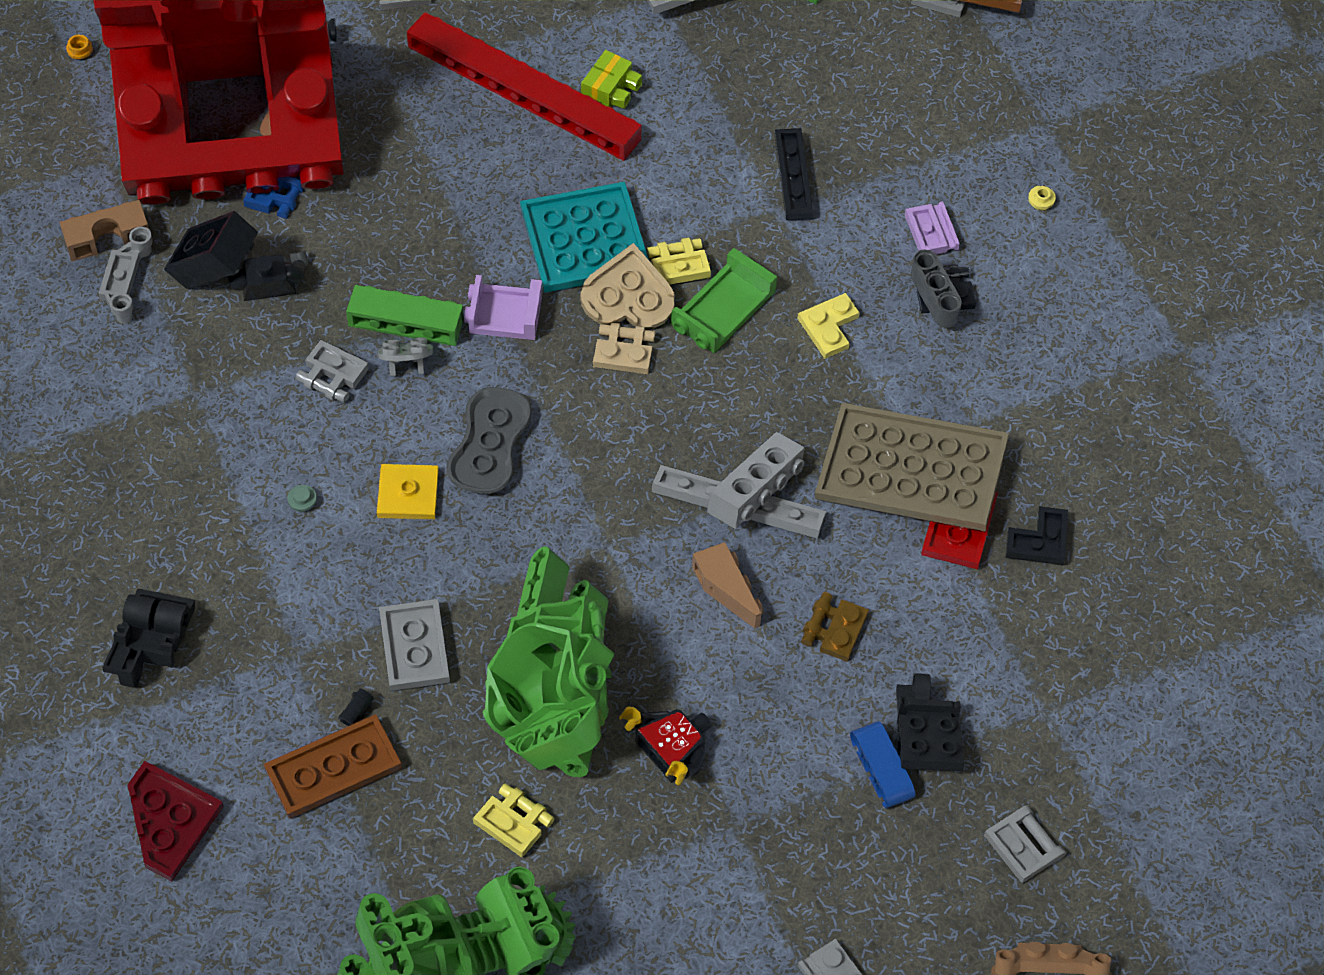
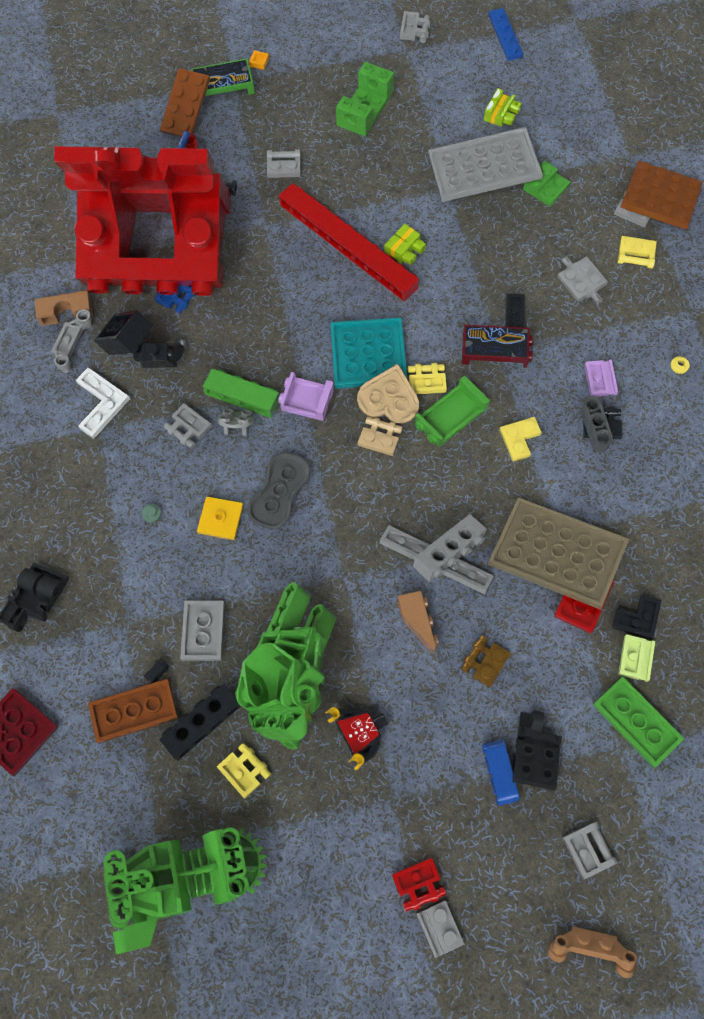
camera: 15 degrees right, 10 degrees up
(206, 349) = (111, 402): none -> white plate
(413, 802) = (170, 737): none -> black brick
(772, 200) = (496, 344): none -> panel
(789, 916) = (416, 877): none -> red plate
(881, 98) = (582, 279): none -> light grey plate
(954, 46) = (637, 247): none -> light yellow plate
(1046, 590) = (636, 658): none -> yellowish green plate
(1063, 671) = (638, 722): none -> bright green plate

